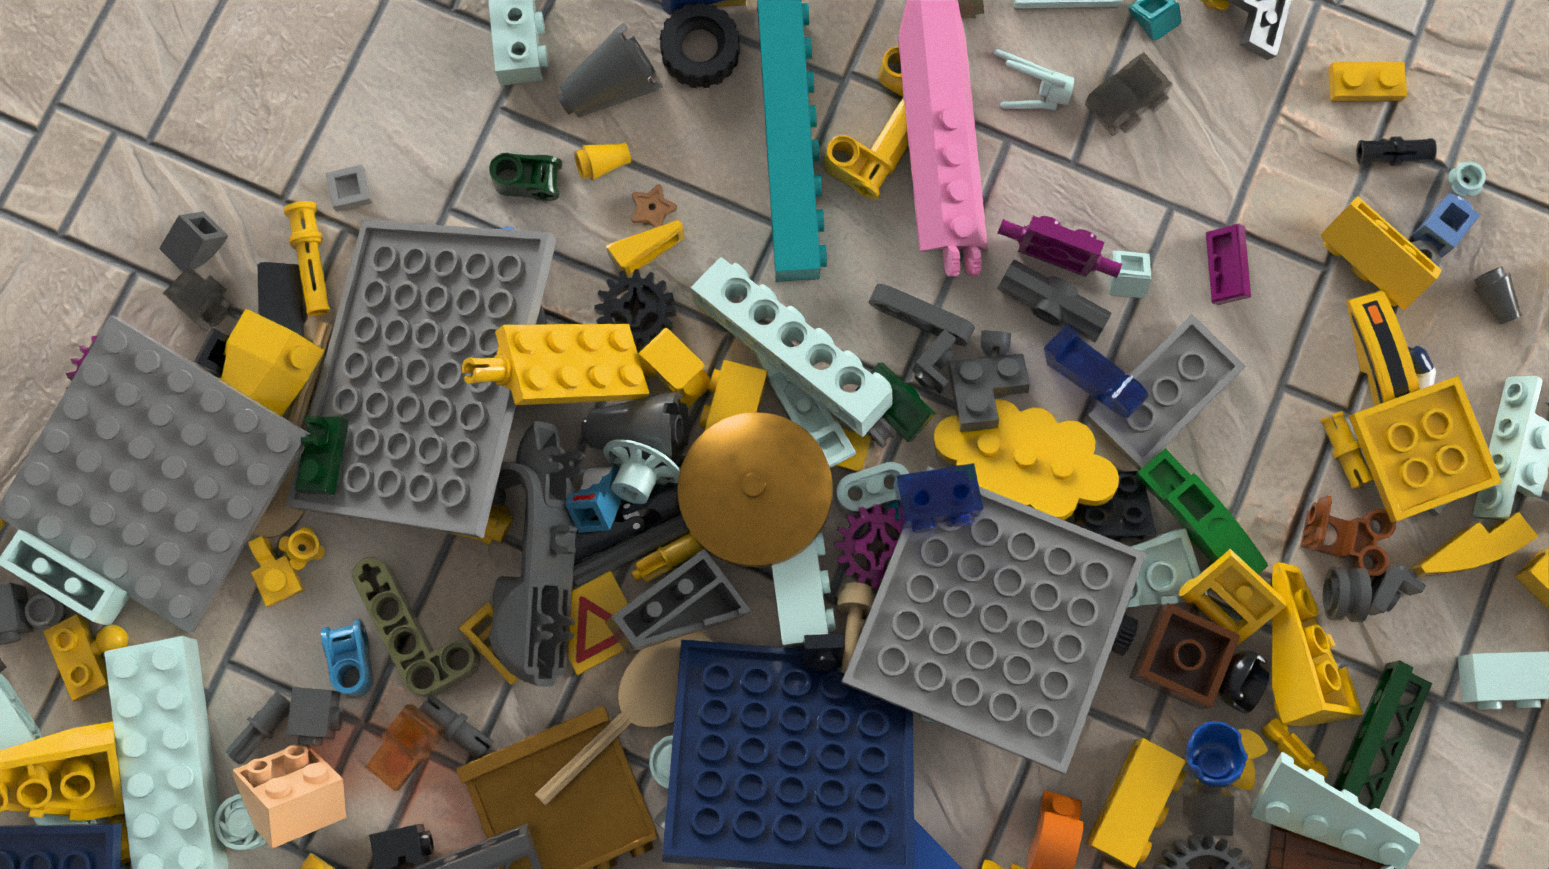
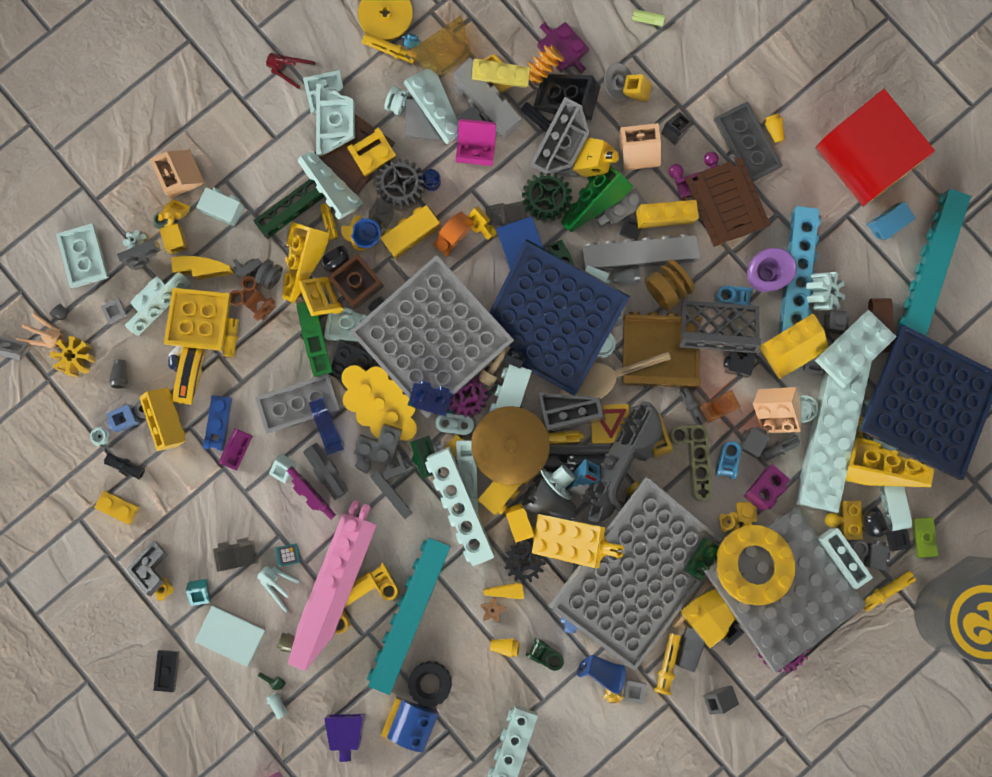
camera: 150 degrees left, 5 degrees up
(32, 670) = (874, 522): none -> black hair
(199, 298) = (729, 668): clear smoke brick -> none
(264, 642) = (764, 485): none -> magenta brick
(274, 475) = (729, 573): none -> yellow plate
(382, 164) = (612, 697): none -> yellow plate
(413, 193) = (606, 673): none -> blue piece
(609, 76) = (482, 687): dark grey cone -> none
(1043, 136) = (287, 554): none -> slope
(1283, 296) = (217, 422): none -> blue plate

